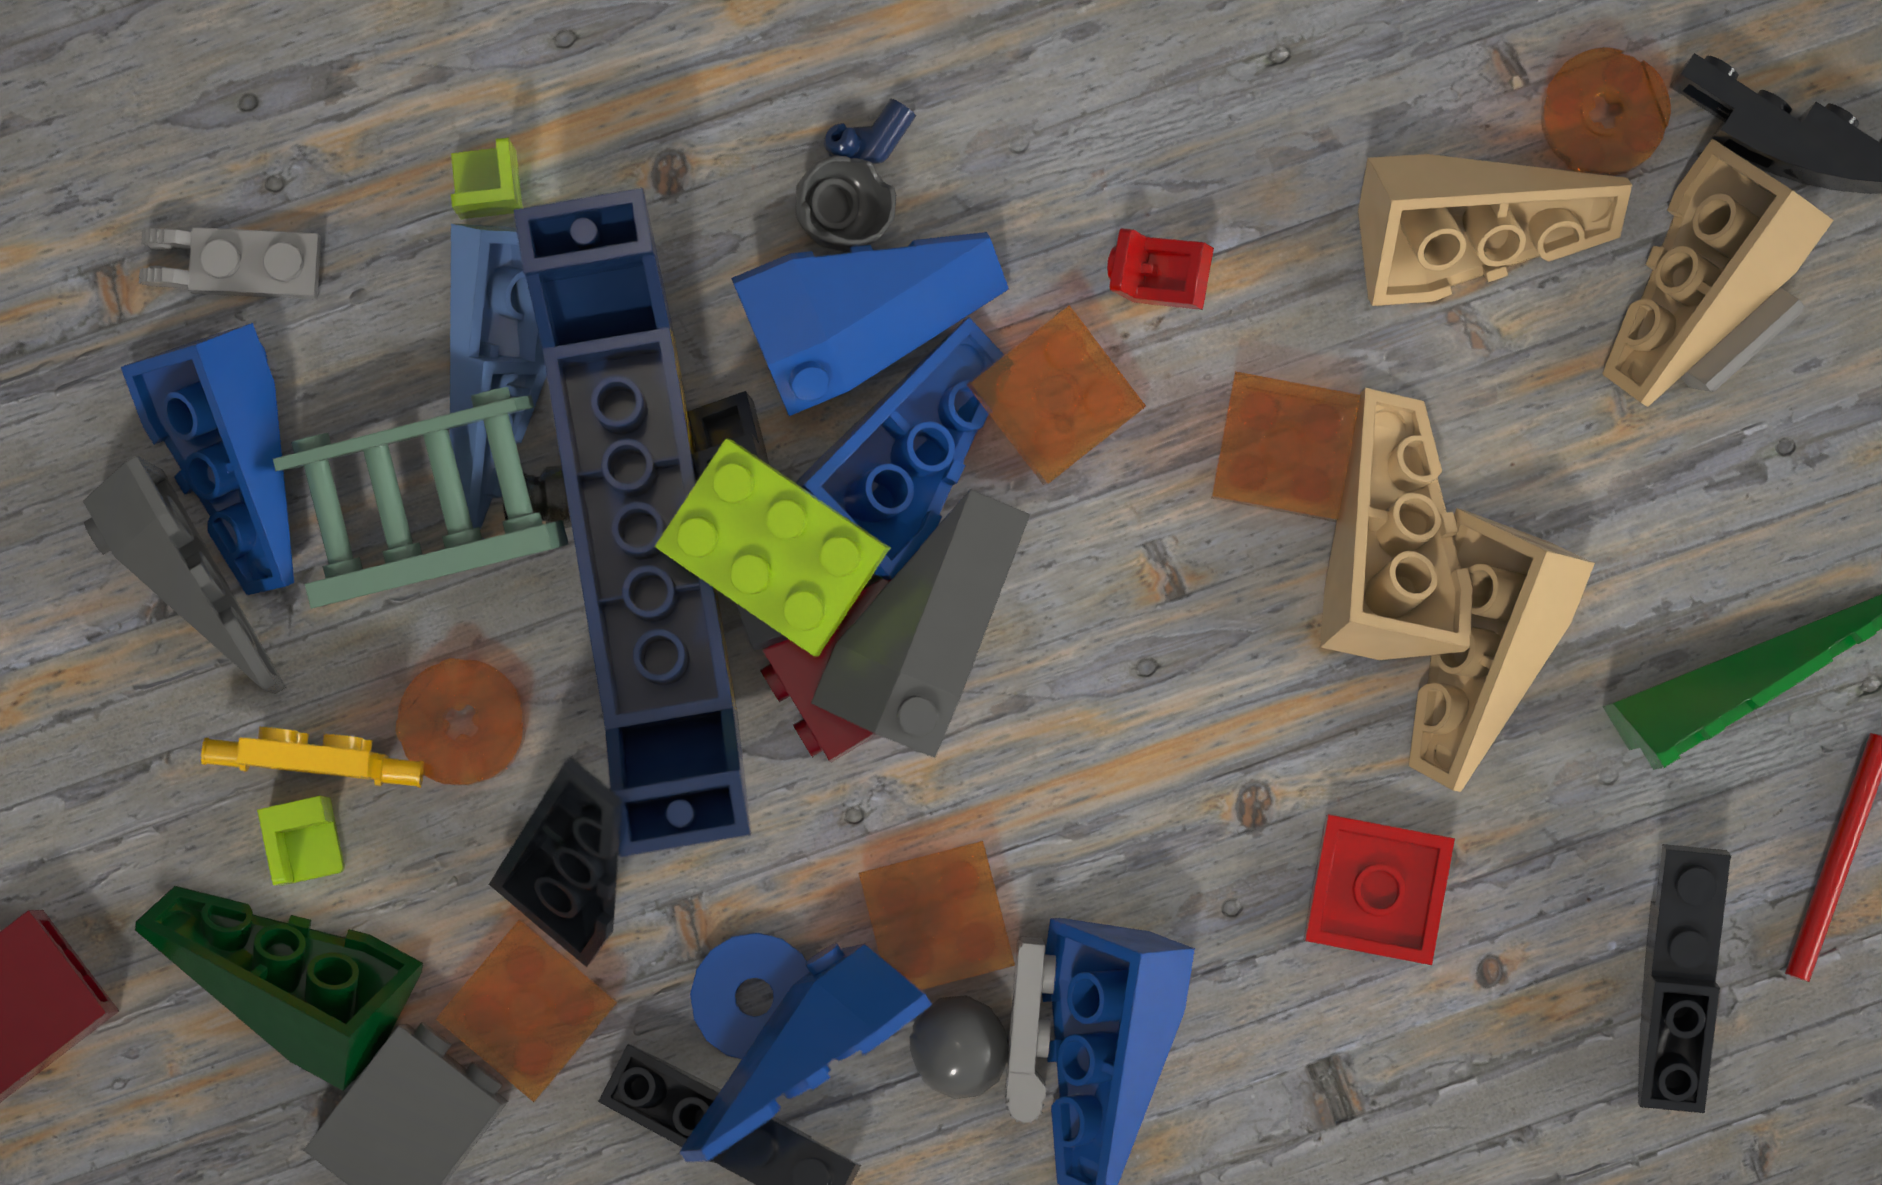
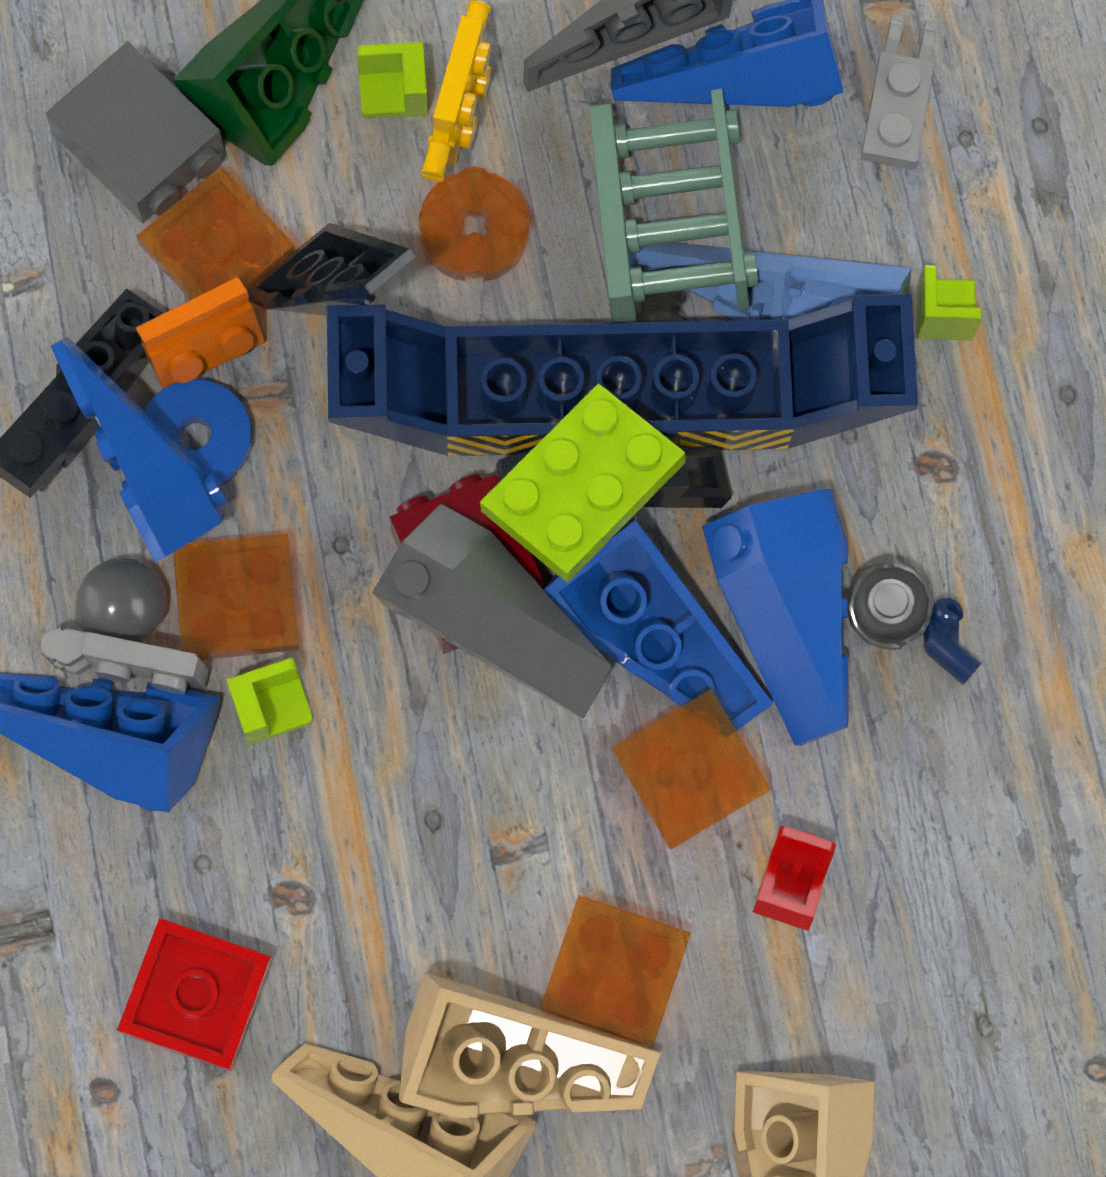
camera: 90 degrees right, 10 degrees down
(644, 1006) = (201, 334): none -> orange plate
(1049, 861) = (270, 701): none -> lime panel

